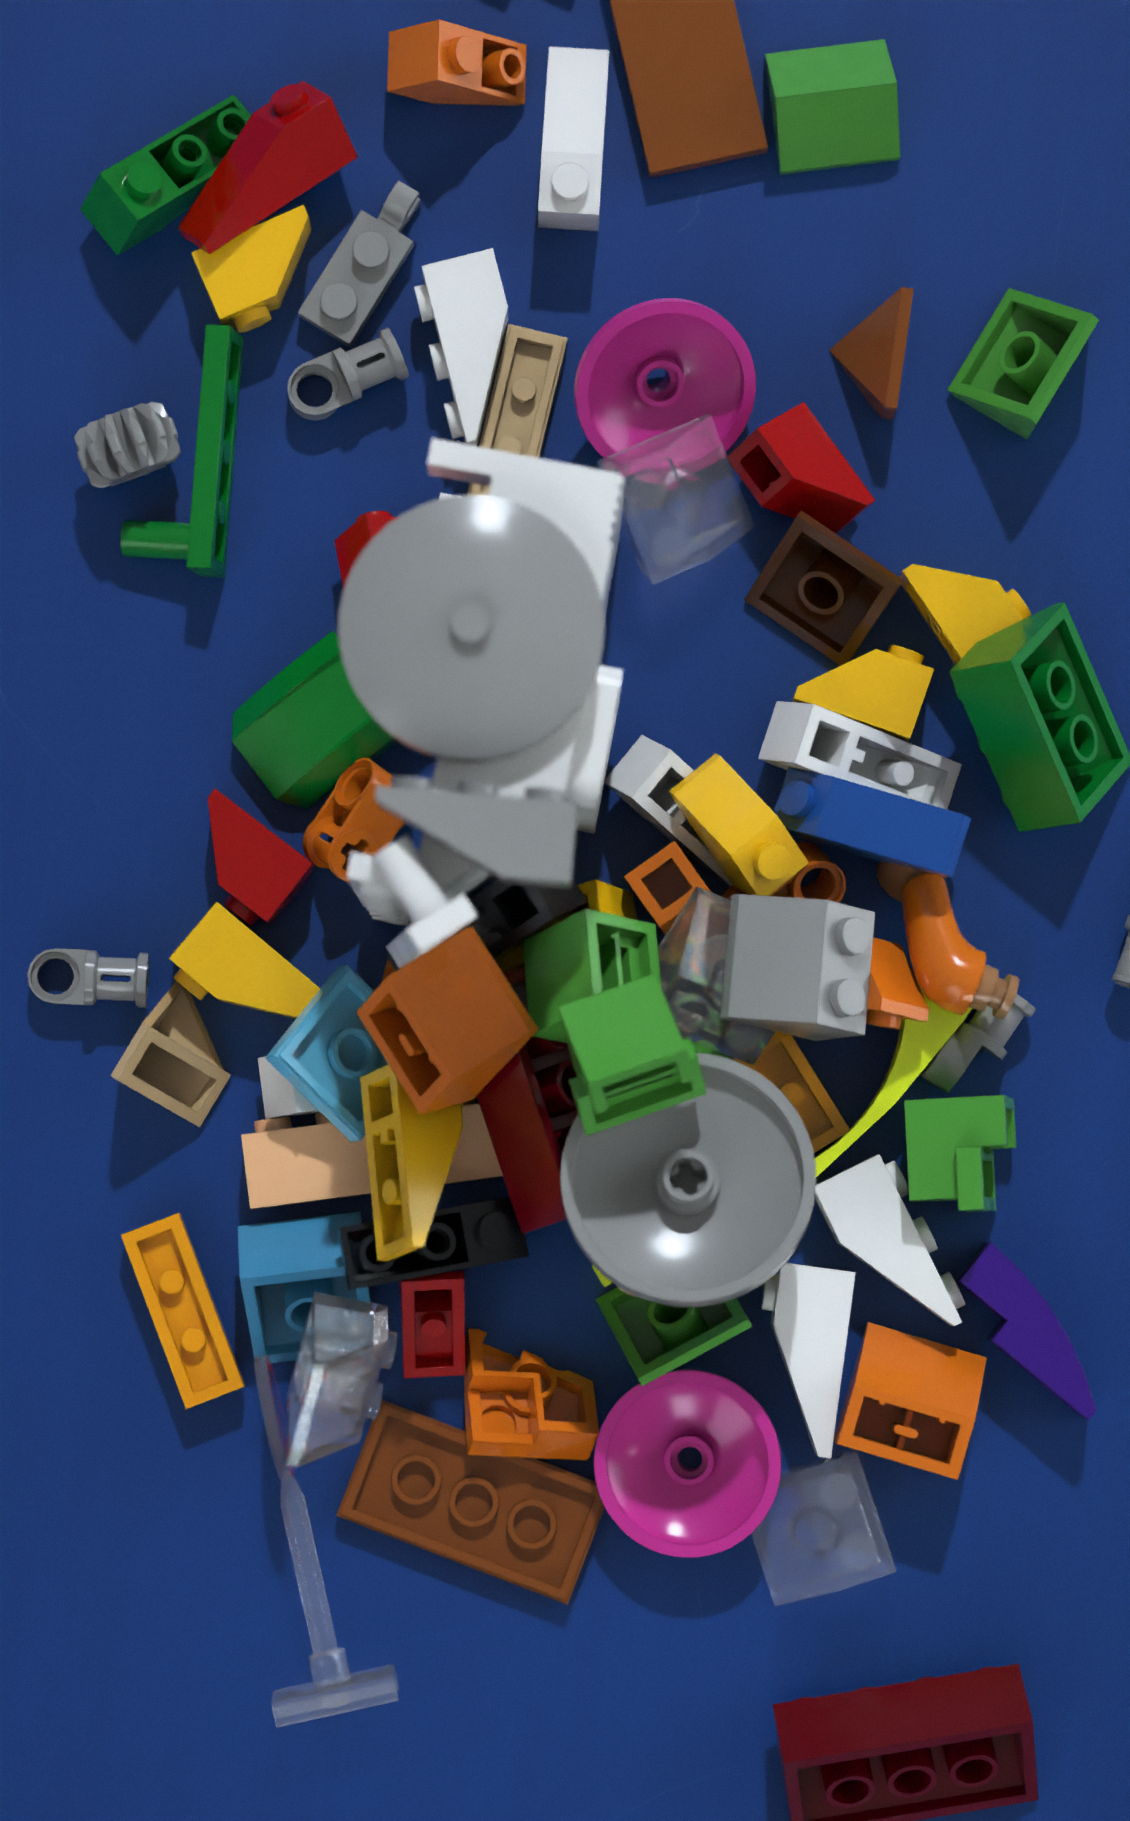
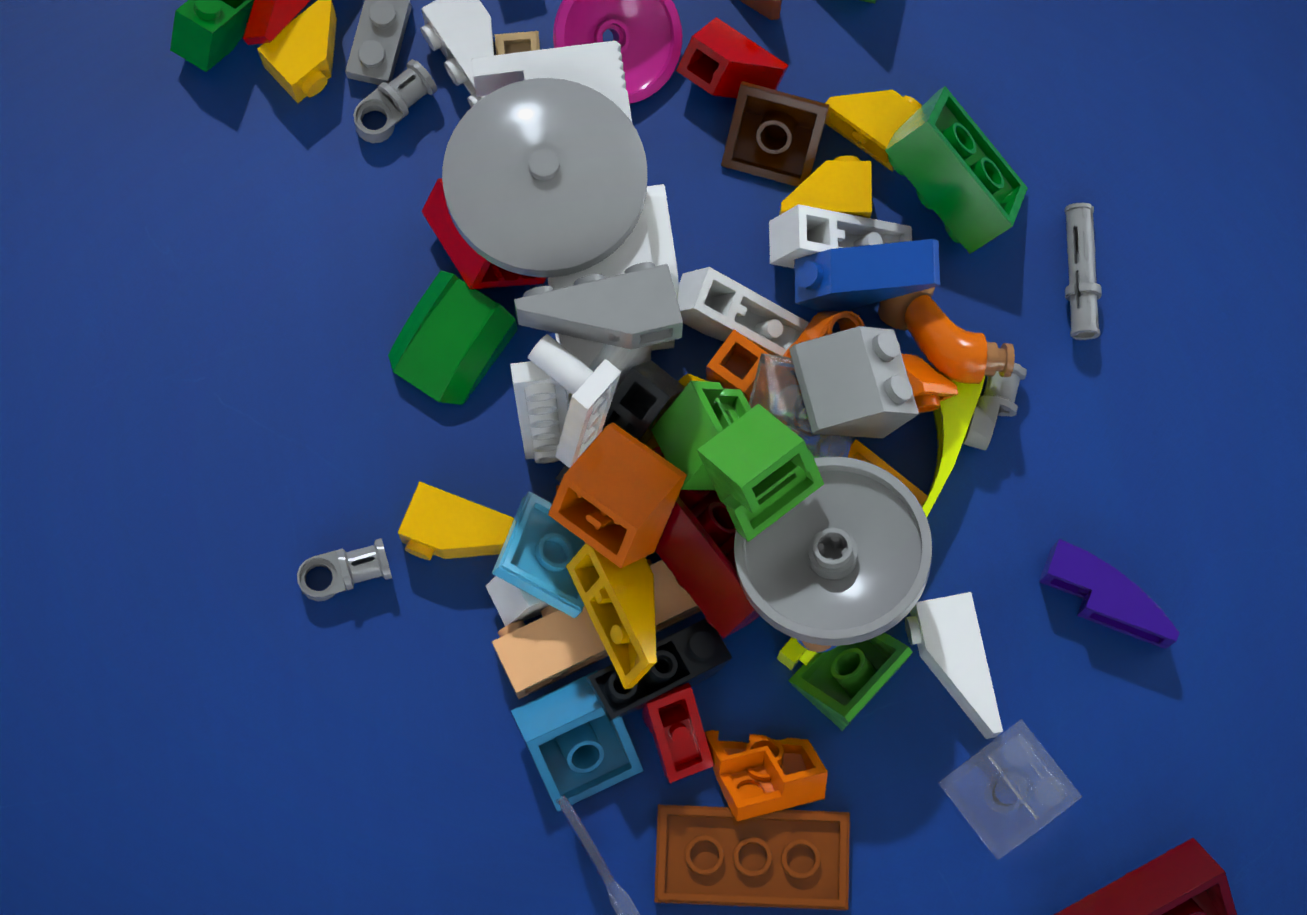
camera: 20 degrees left, 10 degrees down
(127, 444) = (253, 191): light grey gear -> none
(174, 1059) = (423, 609): tan slope -> none
(183, 1310) = (490, 788): light orange plate -> none
(206, 536) = (329, 239): green piece -> none
(253, 863) = (438, 449): red slope -> none
(336, 1376) = (621, 792): clear slope -> none
(351, 819) = (494, 394): orange piece -> none
(679, 499) = (661, 105): clear slope -> none
(682, 1507) = (936, 779): dark pink dish -> none
(738, 828) = (774, 307): yellow slope -> none
(874, 1225) = (977, 562): white slope -> none
(911, 1401) = (1044, 674): orange slope -> none
(953, 1148) = (1007, 480): bright green plate -> none

